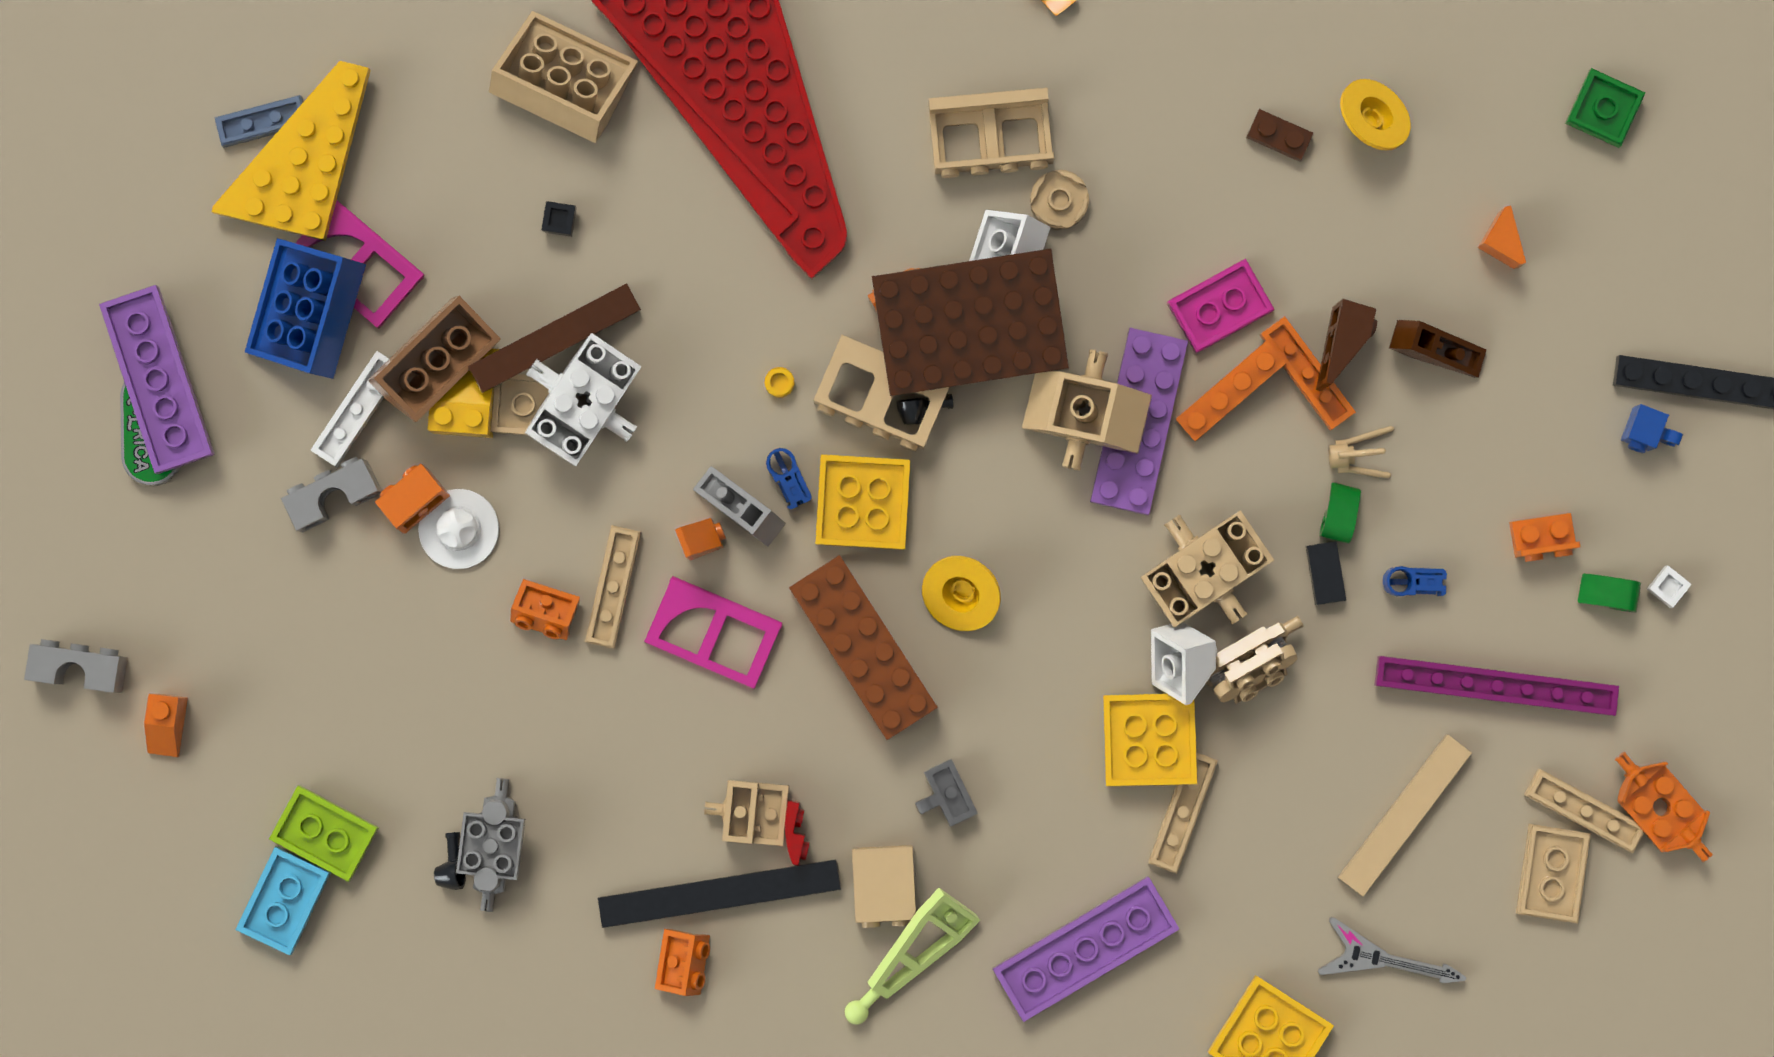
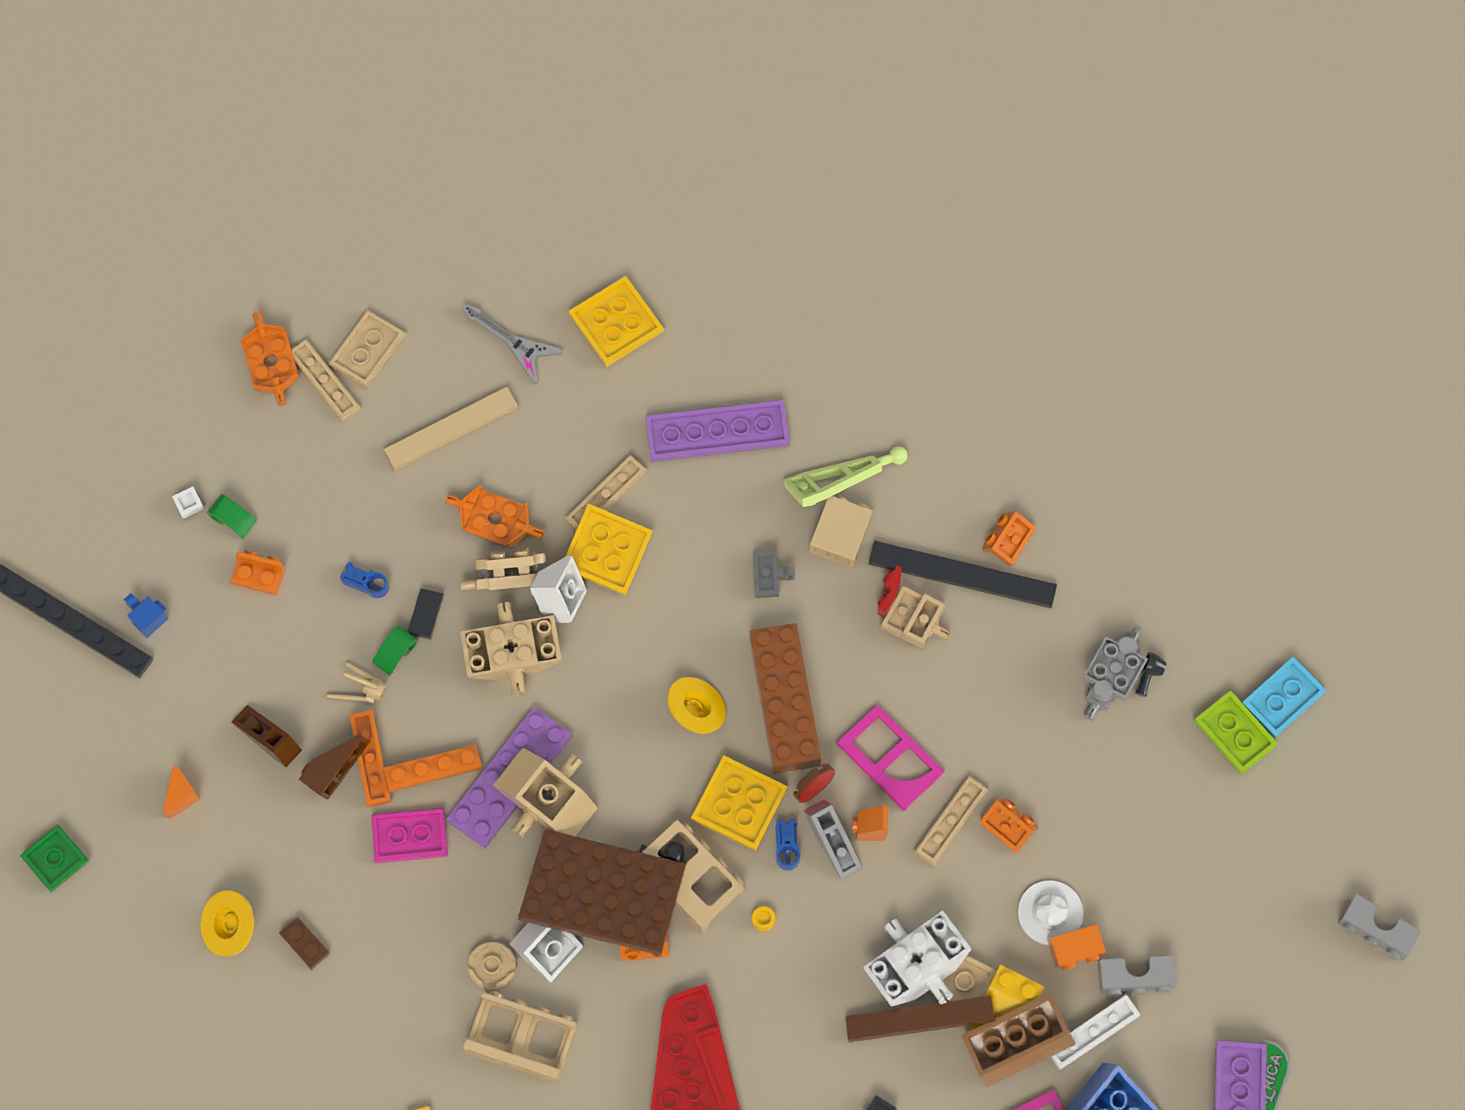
camera: 160 degrees left, 15 degrees down
(164, 724) = (1325, 860): orange slope -> none
(786, 557) = (814, 783): none -> tile
(1324, 730) = (481, 504): none -> orange plate
(1496, 685) = (344, 486): magenta plate -> none

